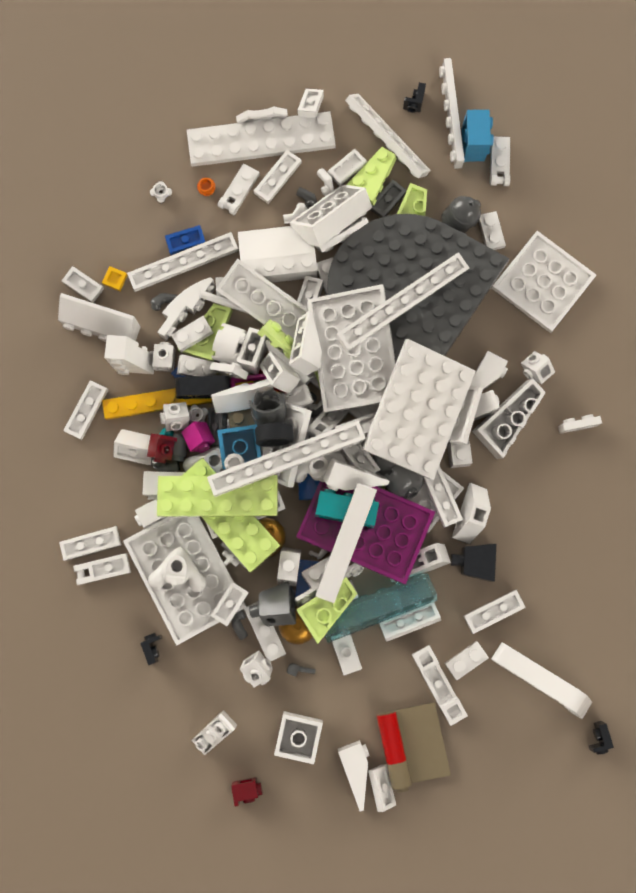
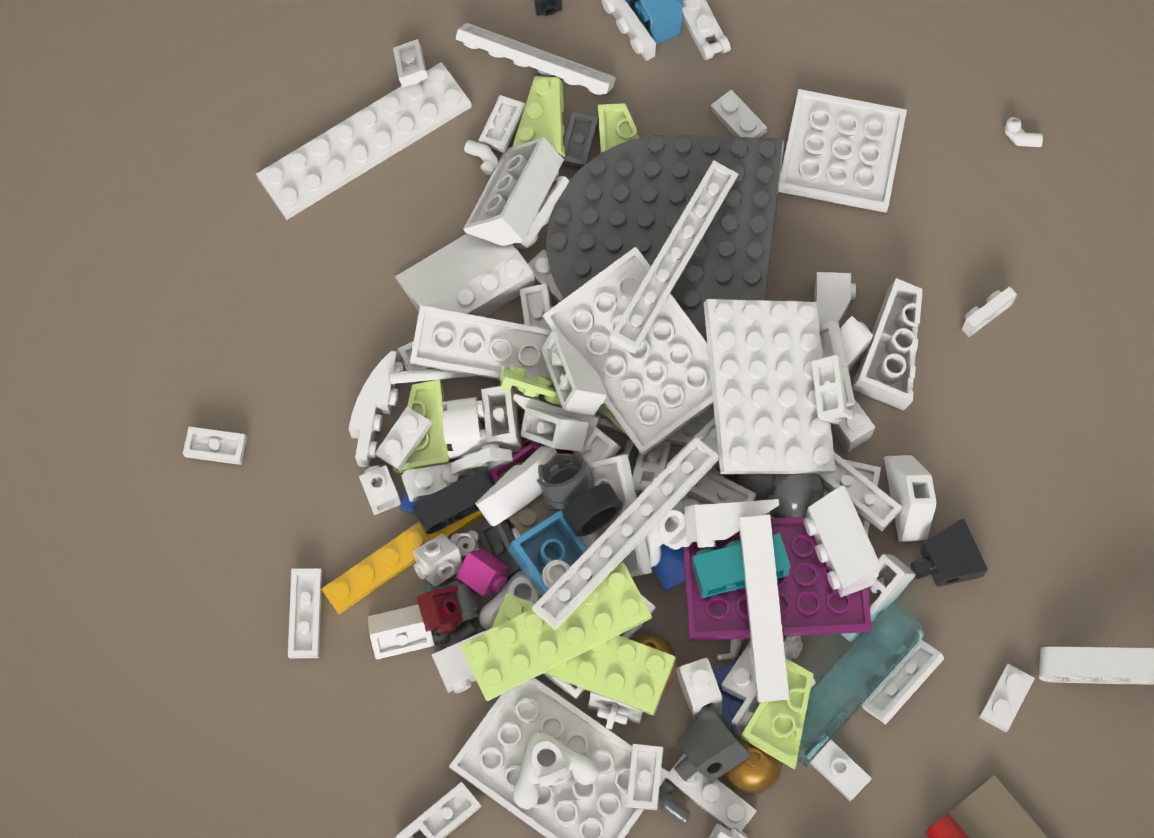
camera: 20 degrees left, 10 degrees down
(90, 543) = (403, 795): white tile -> none
(95, 319) = (263, 482): white slope -> none
(114, 278) = (256, 417): yellow plate -> none
(127, 357) = (333, 507): white wedge -> none
(147, 514) = (468, 711): white brick -> none
(160, 186) = (258, 264): white plate -> none
(162, 298) = (335, 413): dark grey arm -> none
(183, 261) = (340, 350): white plate -> none
(184, 239) = (329, 319): blue plate -> none
(206, 186) = (321, 236): orange plate -> none
(239, 189) = (368, 219): white plate -> none
(266, 114) = (347, 110): white tile -> none
(277, 176) = (413, 178): white plate -> none
(294, 668) = (777, 827): dark grey hand -> none
(300, 208) = (466, 207): white arm -> none
(310, 198) = (470, 186): dark grey arm -> none
(413, 526) = (842, 542): none -> white slope
(439, 685) = (987, 748): white slope -> none
(454, 429) = (830, 389): none -> white hinge
(462, 213) = (688, 111): dark grey helmet -> none
(494, 611) = (1008, 612): white plate -> none
(537, 367) = (894, 262): white brick -> none

